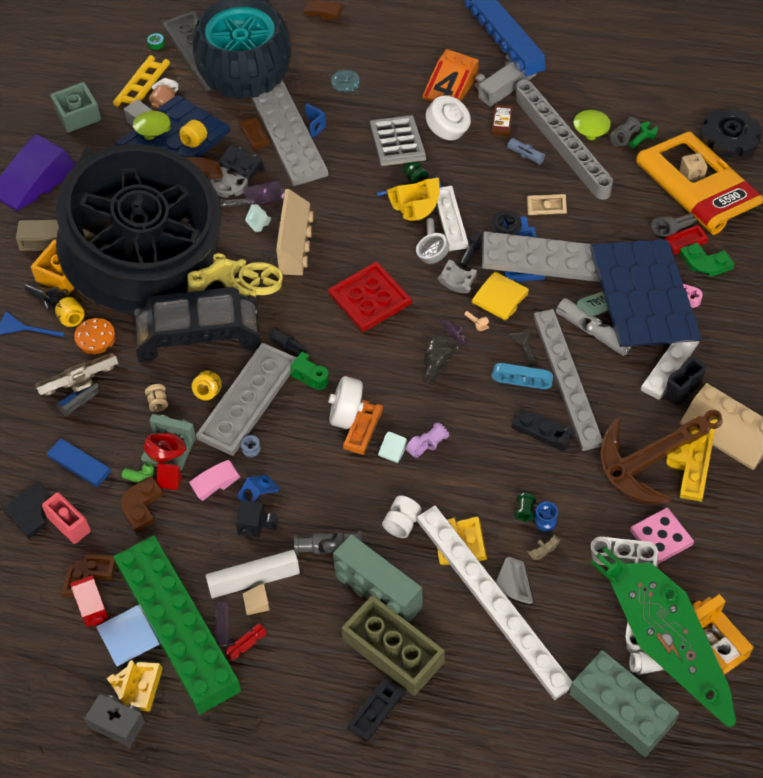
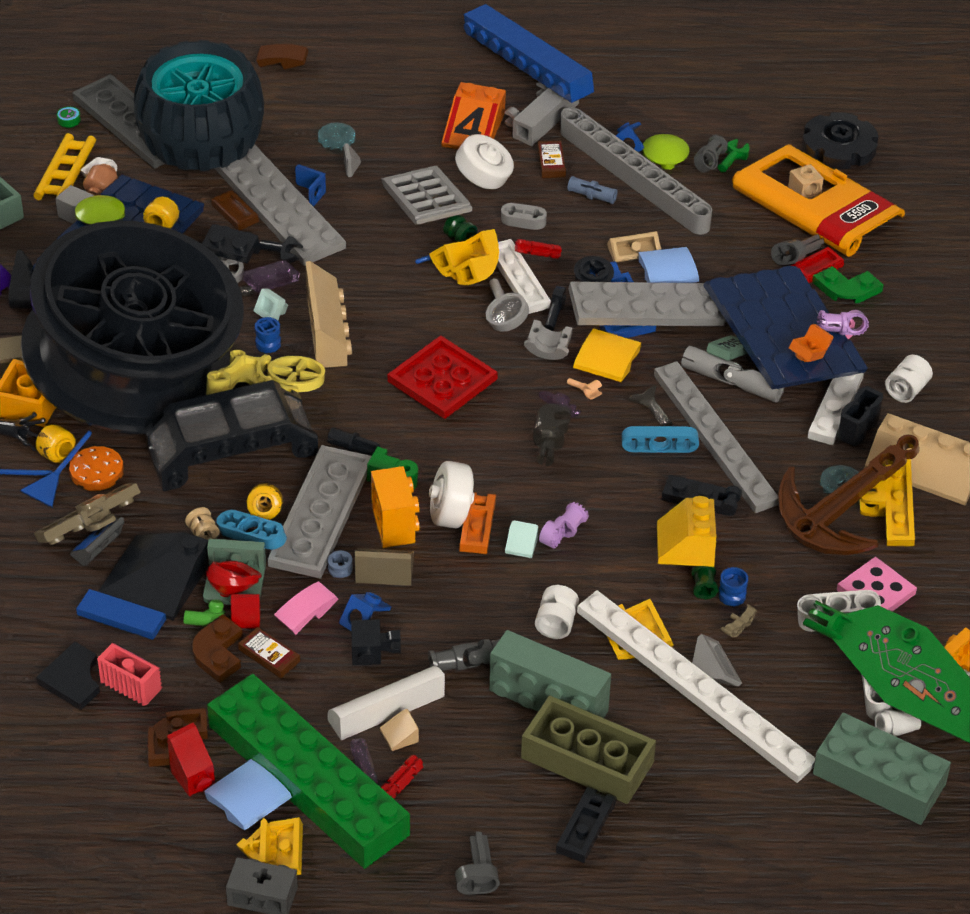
camera: 15 degrees left, 10 degrees down
(54, 346) = (45, 488): none -> blue piece
(113, 432) = (159, 571): none -> black slope
(177, 513) = (269, 652): none -> tile
(193, 414) = (235, 523): none -> dark azure beam
(248, 242) = (267, 335): none -> blue wheel
(279, 170) = (283, 248): none -> black bar
(282, 452) = (384, 566): none -> dark tan slope
(283, 742) = (481, 875): none -> dark grey piece
(300, 406) = (394, 506): none -> light orange brick
(350, 103) = (351, 160): none -> light grey slope
(468, 166) = (523, 216): none -> light grey beam
(470, 197) = (538, 248): none -> red axle
(520, 466) = (688, 533): none -> yellow slope
(563, 106) = (627, 131): none -> blue bracket
(568, 225) = (669, 266): none -> light blue slope
(654, 428) = (835, 475): none -> clear light blue gear
(658, 316) = (812, 345): none -> orange bracket
(688, 297) = (840, 322): none -> lavender connector
(733, 352) = (908, 378): none -> white wheel

